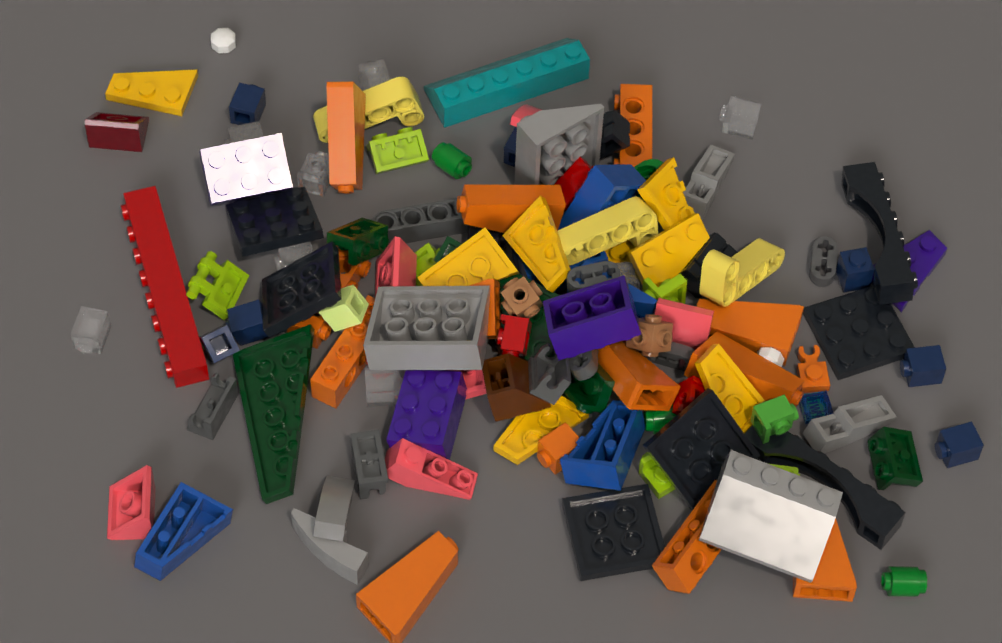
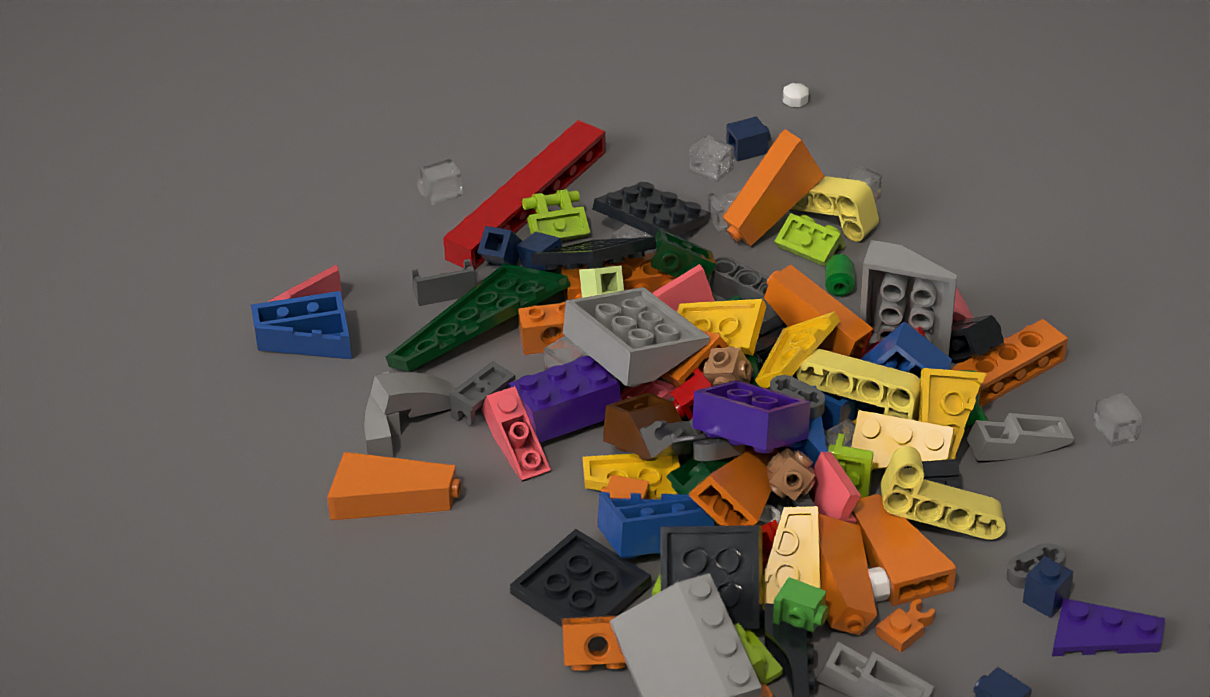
camera: 55 degrees right, 15 degrees down
(116, 131) = (638, 91): dark red slope -> none
(153, 90) = (704, 91): yellow wing -> none
(245, 169) = (678, 164): brick -> none
(508, 81) = (976, 265): teal slope -> none
(815, 405) = (870, 642): clear blue tile -> none
(857, 332) = (988, 631): black plate -> none
(866, 193) = (1067, 604): black arch -> none

